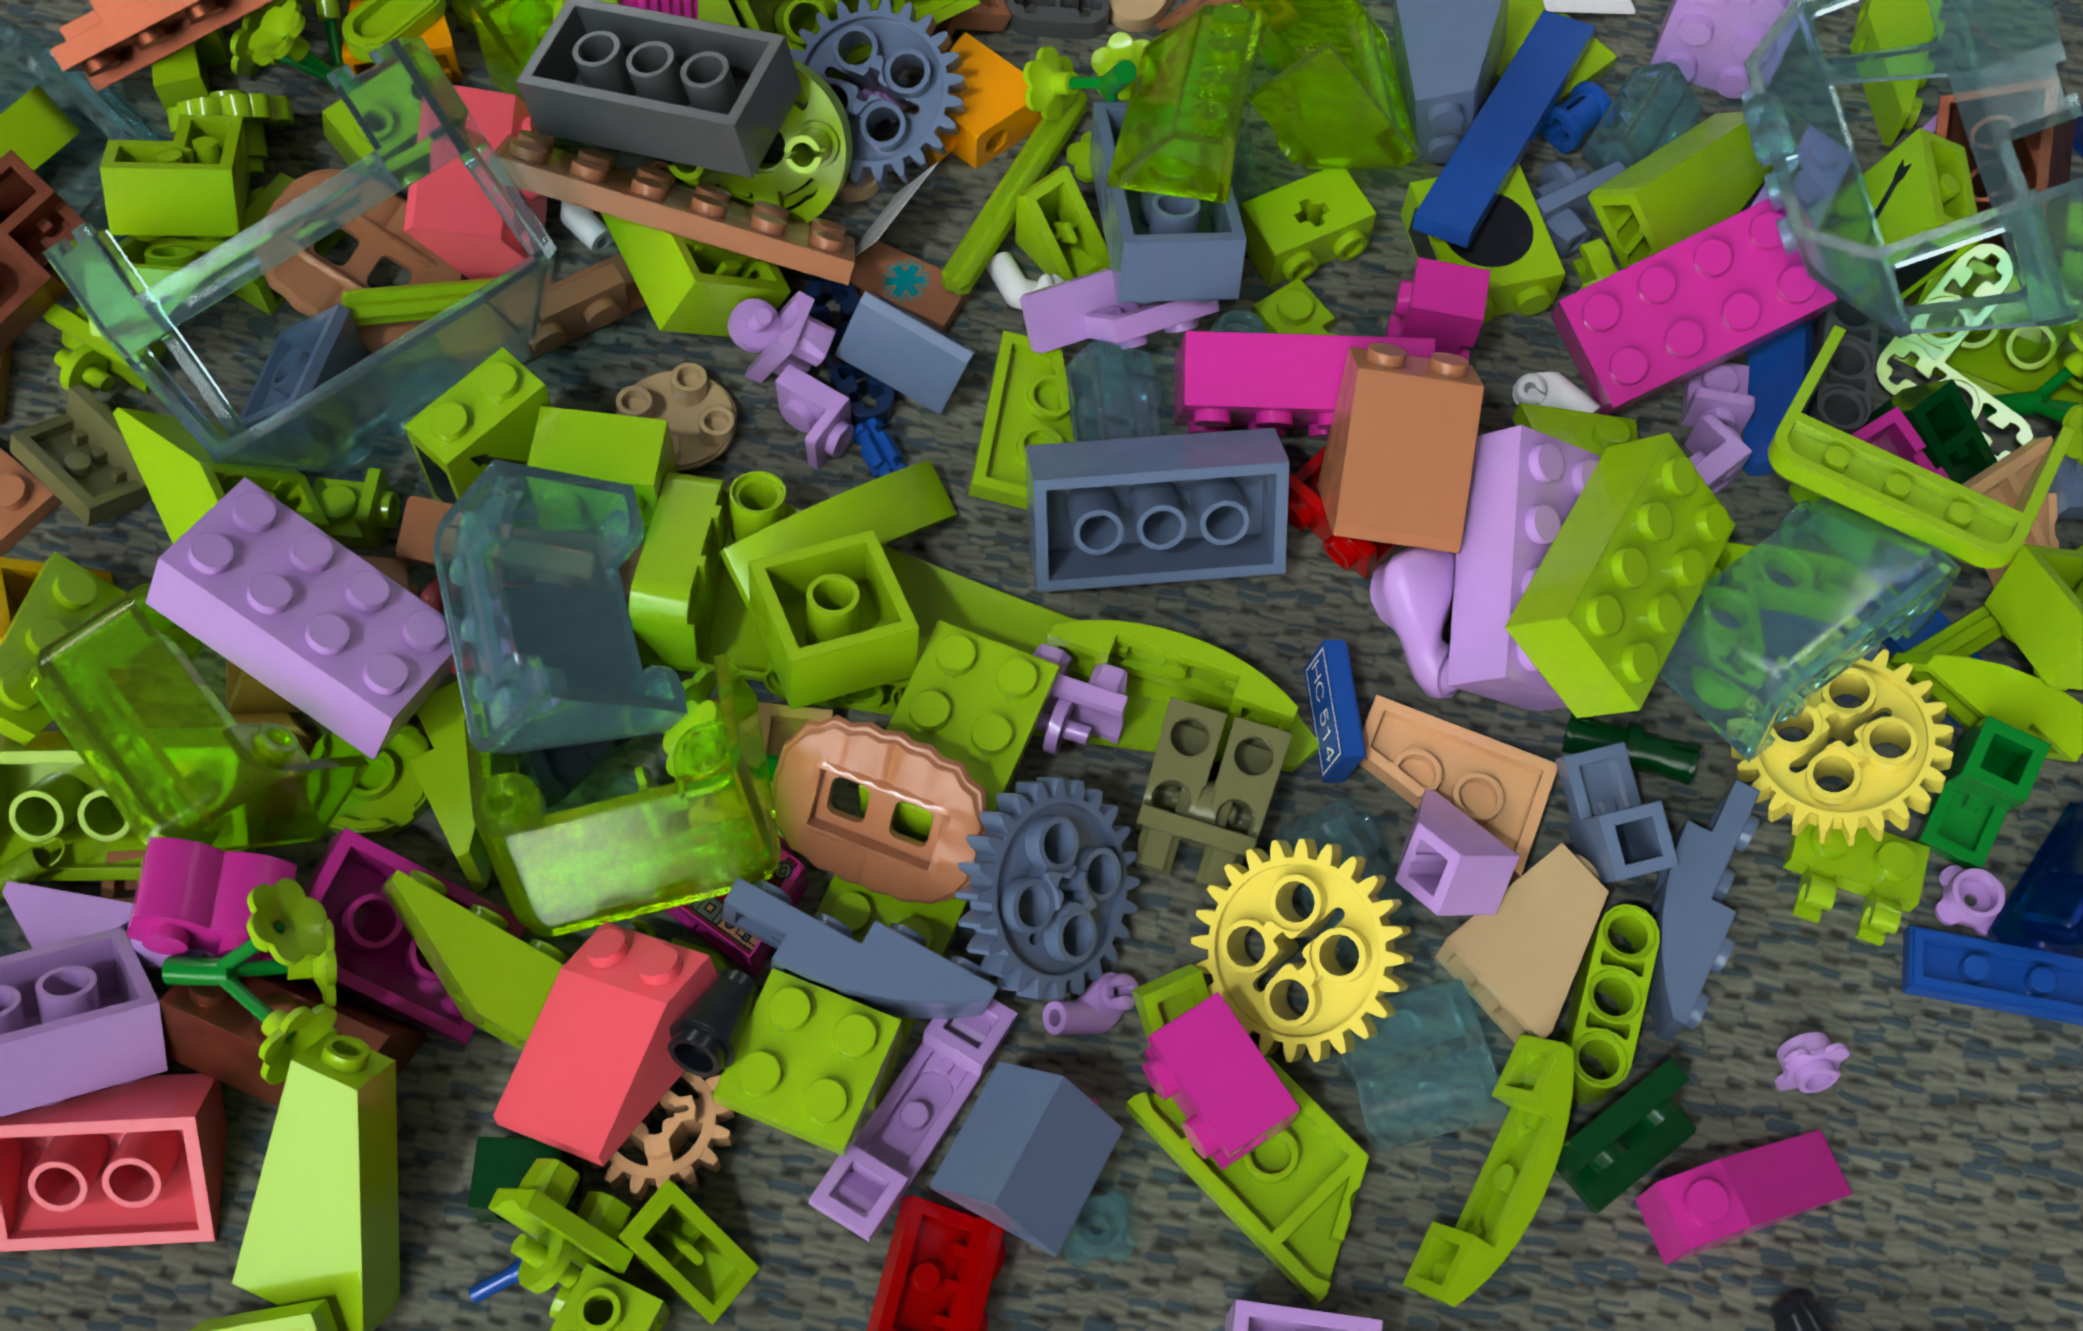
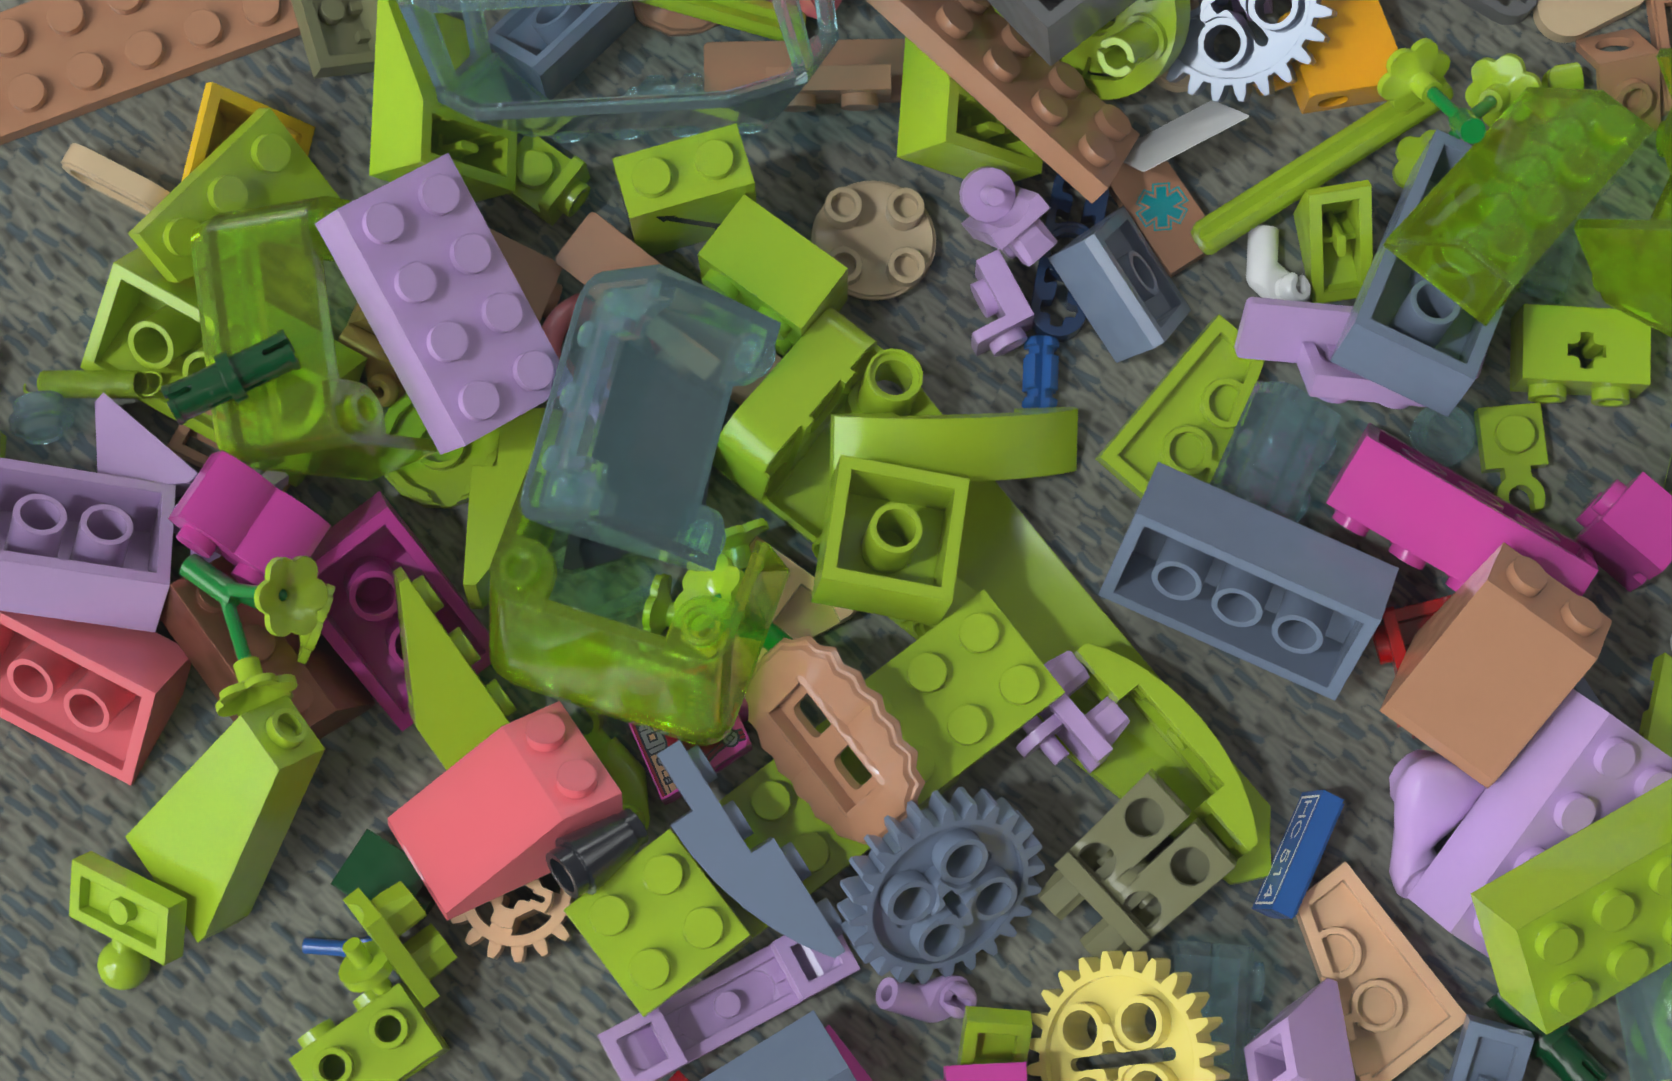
camera: 35 degrees right, 15 degrees up
(126, 765) = (231, 377): none -> dark green pin
(688, 1252) = (486, 1016): lime slope -> none

